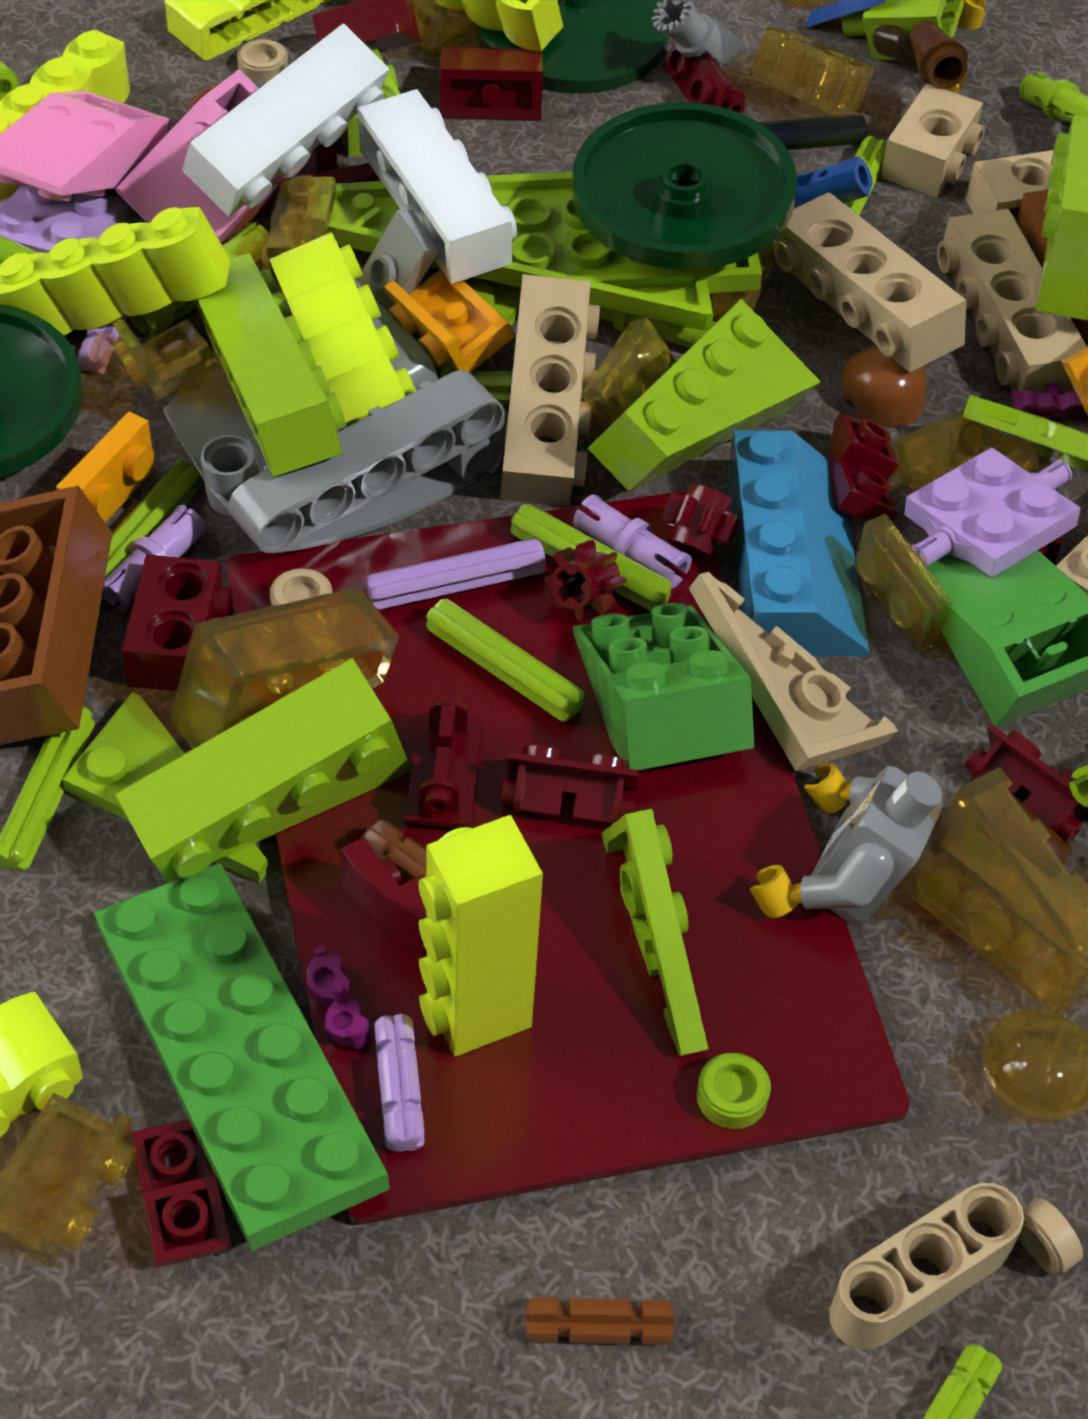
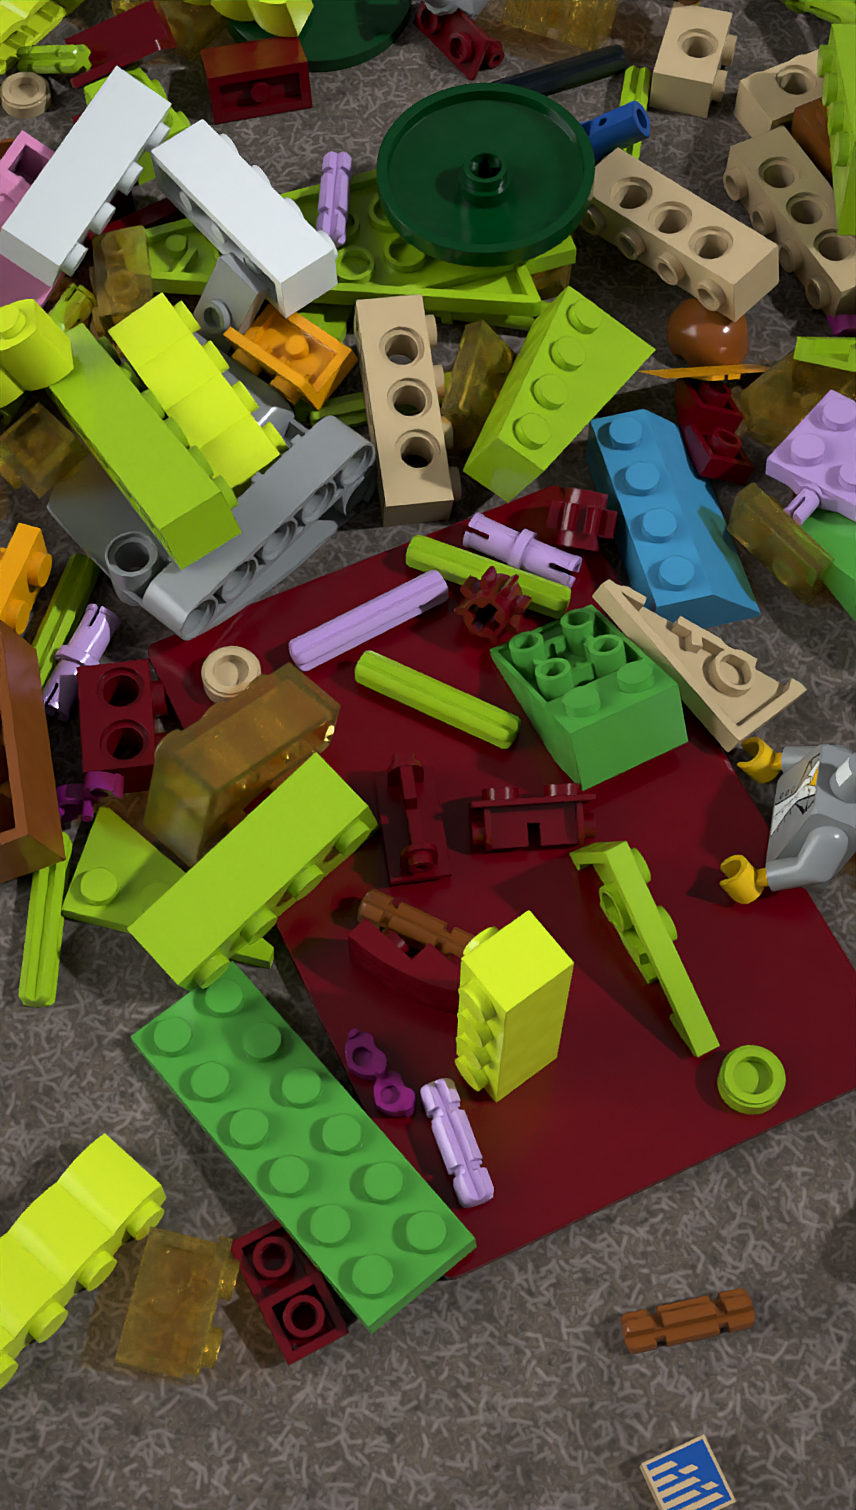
camera: 10 degrees left, 10 degrees up
(109, 680) = (80, 798): none -> magenta piece
(296, 30) = (54, 59): none -> lime axle
(531, 184) = (335, 196): none -> lavender axle
(872, 416) = (709, 373): none -> light orange piece

